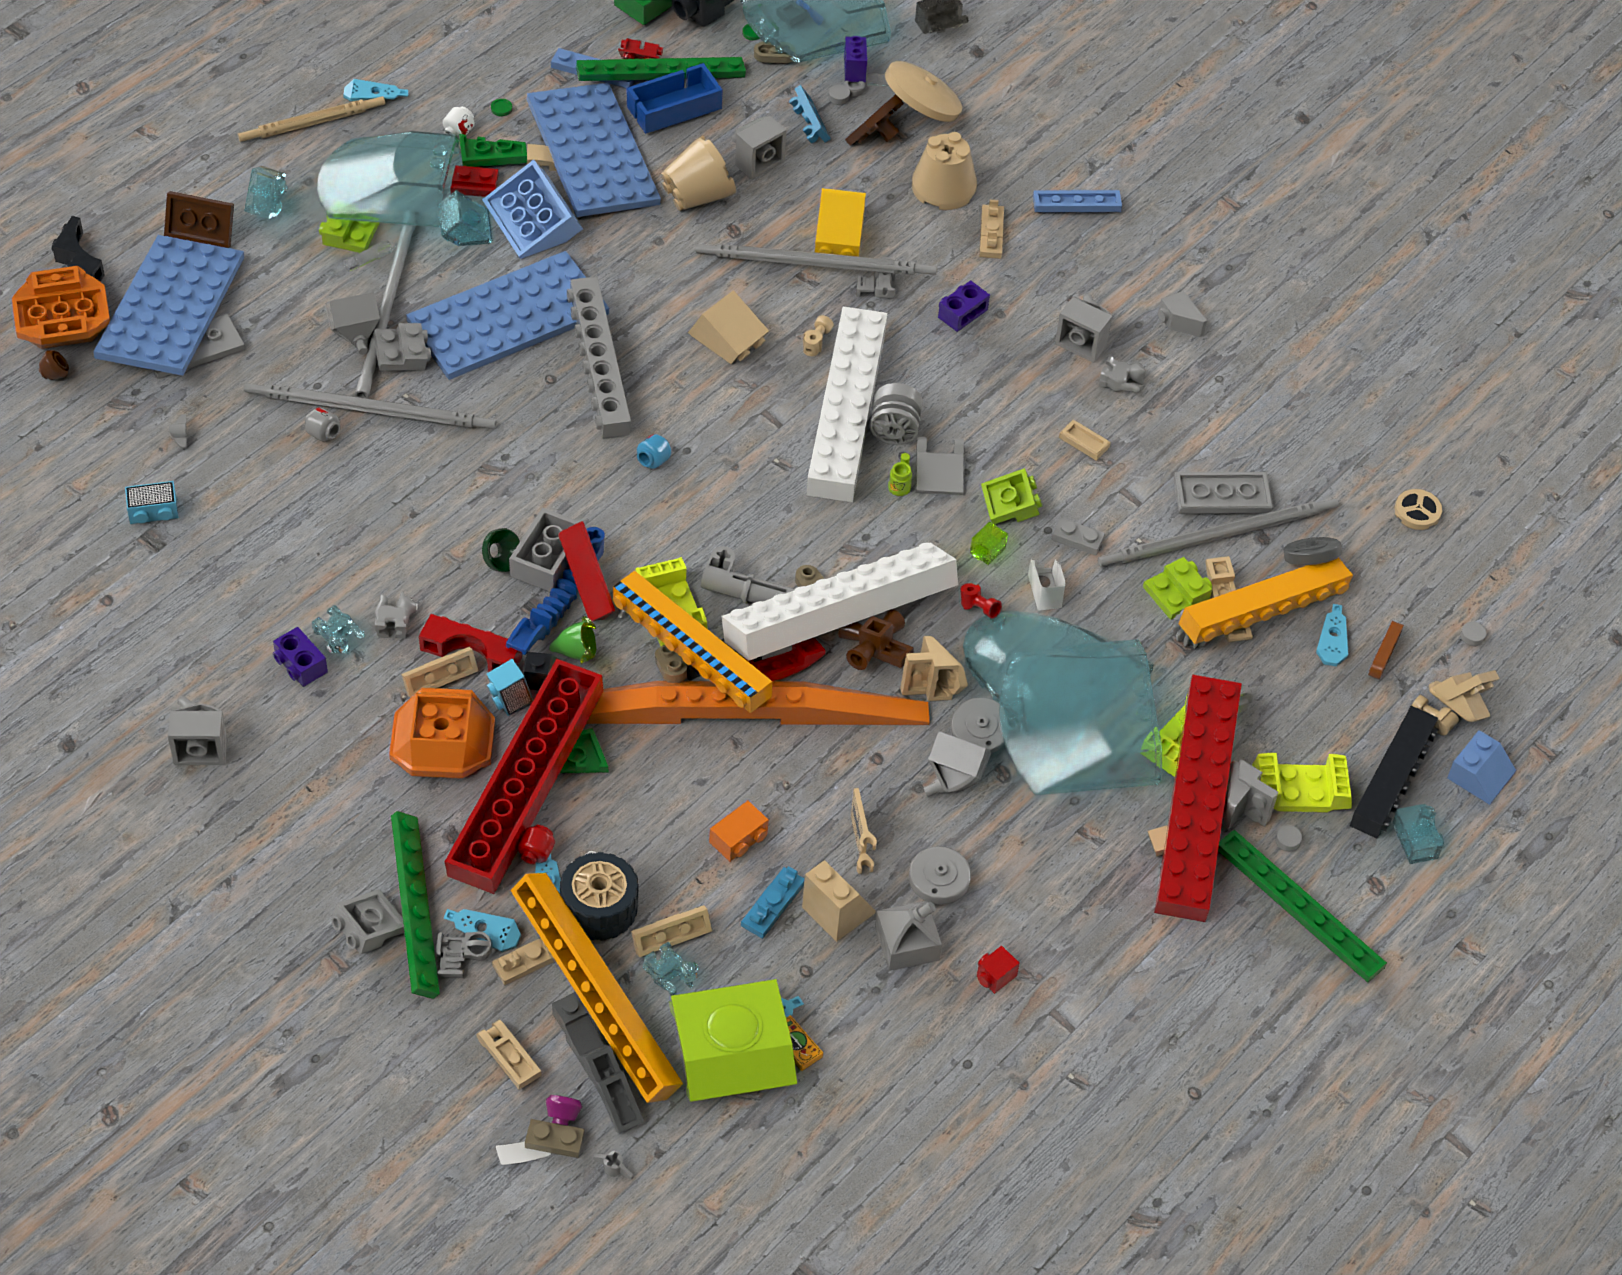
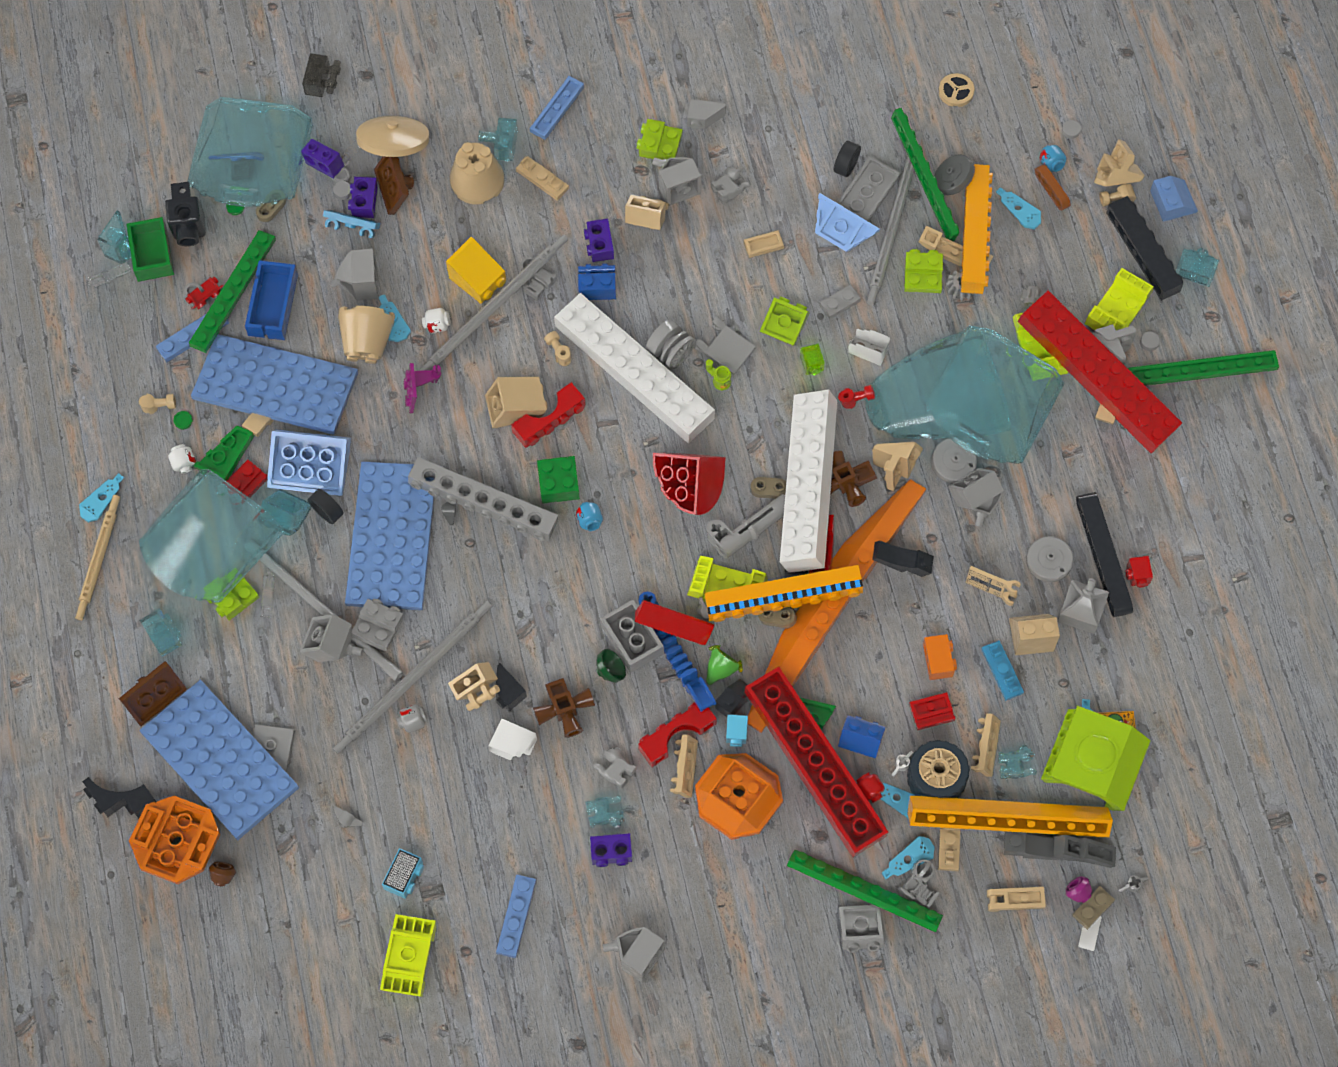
camera: 50 degrees left, 15 degrees up
(64, 547) = (407, 955): none -> neon yellow plate
(172, 619) = (516, 916): none -> medium blue plate
(358, 515) = (512, 740): none -> white piece
(393, 448) = (472, 682): none -> tan brick
(412, 483) = (510, 692): none -> black slope
(426, 536) = (564, 707): none -> reddish brown brick
(492, 243) = (325, 506): none -> black tyre
(496, 77) = (150, 404): none -> tan leg
(568, 343) = (449, 512): none -> dark grey piece
(591, 806) = (861, 736): none -> blue brick
(671, 859) = (932, 711): none -> red plate
(672, 406) = (558, 479): none -> green brick
(679, 238) = (415, 379): none -> magenta plate
(733, 208) = (399, 323): none -> medium azure piece
(759, 372) = (531, 429): none -> red arch
(760, 508) = (690, 480): none -> red brick
(763, 228) = (436, 320): none -> white head
(823, 734) = (903, 559): none -> black slope
(844, 110) = (365, 197): none -> dark purple brick
(914, 326) = (598, 282): none -> blue brick
(989, 925) = (1104, 554): none -> black beam
(1002, 178) = (503, 138): none -> clear light blue brick
(1027, 322) = (645, 212): none -> tan brick
(1119, 295) = (658, 140): none -> lime plate
(1163, 487) = (841, 225): none -> light blue wing
(1241, 440) = (847, 158): none -> black tyre
(1293, 518) = (924, 174): none -> green plate
(1420, 631) = (1053, 158): none -> dark azure head

